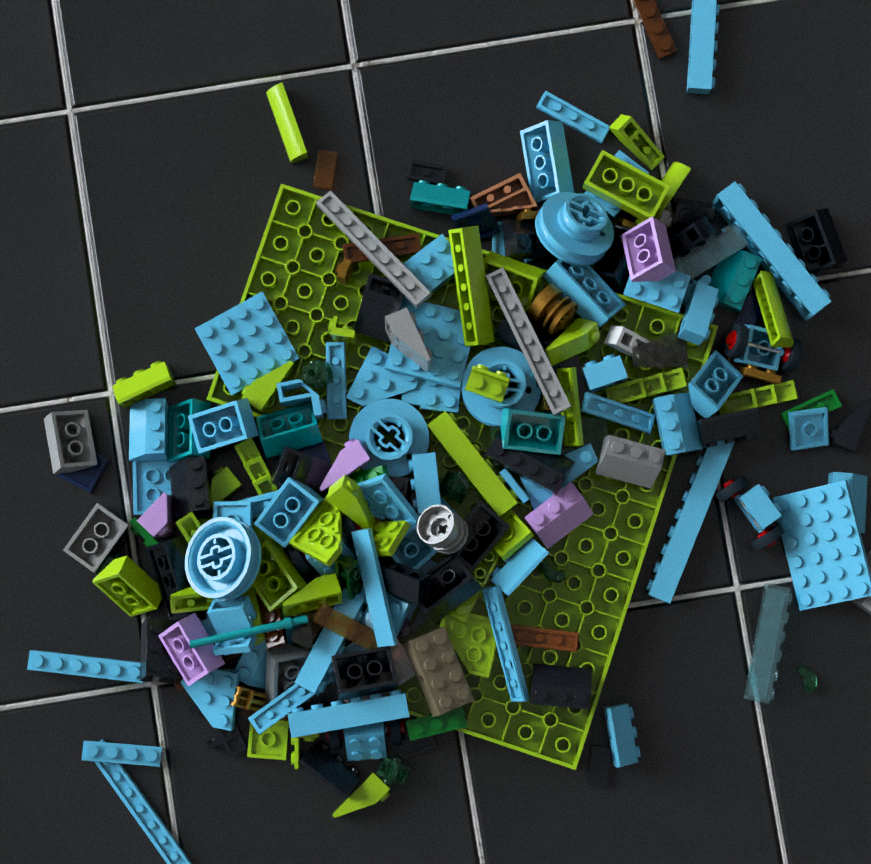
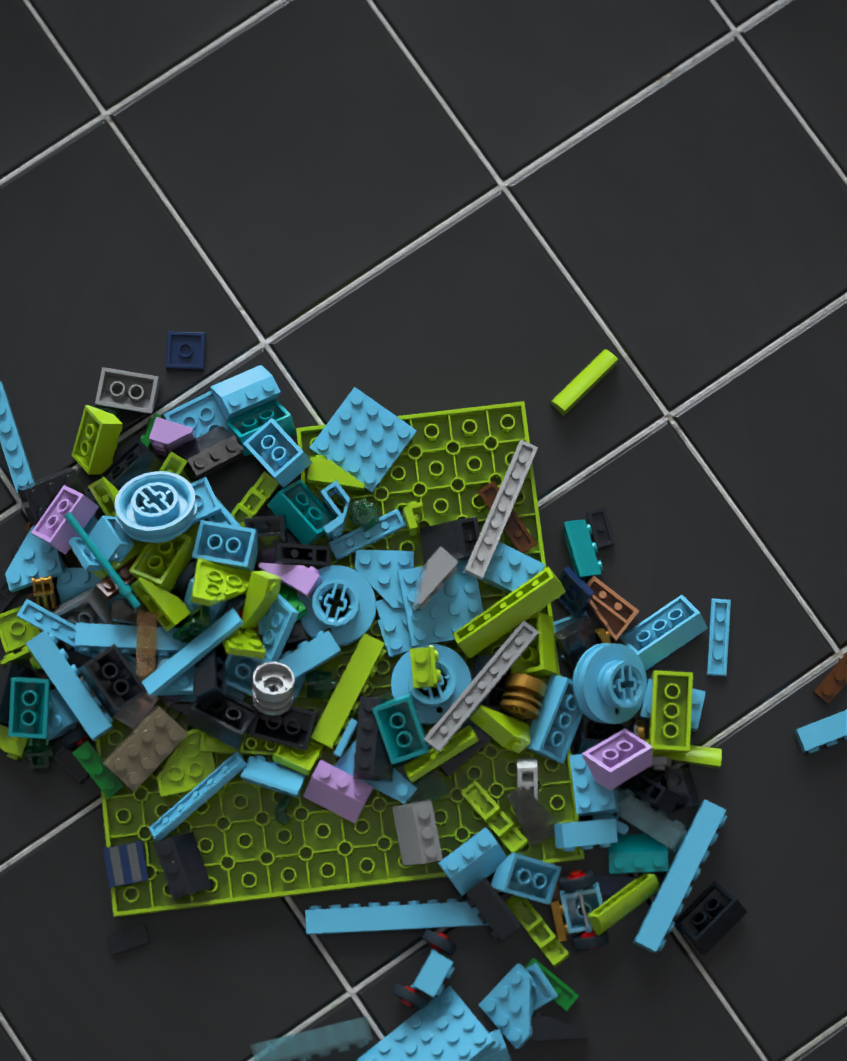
camera: 60 degrees right, 5 degrees down
(70, 441) = (203, 327): light grey slope -> none
(143, 384) = (284, 367): lime slope -> none
(224, 485) = (227, 481): lime slope -> none
(325, 169) = (559, 436): clear orange tile -> none
(330, 446) = (302, 555): none -> black slope
(344, 271) = (468, 493): pearl gold plate -> none
(351, 761) = (29, 707): none -> teal slope
(534, 737) = (125, 864): none -> tile
(545, 638) = (220, 830): dark orange tile -> none
(604, 373) = (486, 770): medium azure brick -> none
(617, 412) = (457, 800): medium azure tile -> none
(621, 735) = (165, 945): medium azure slope -> none
(636, 140) = (723, 706): lime slope -> none
(816, 451) = (511, 1006): none -> medium azure plate

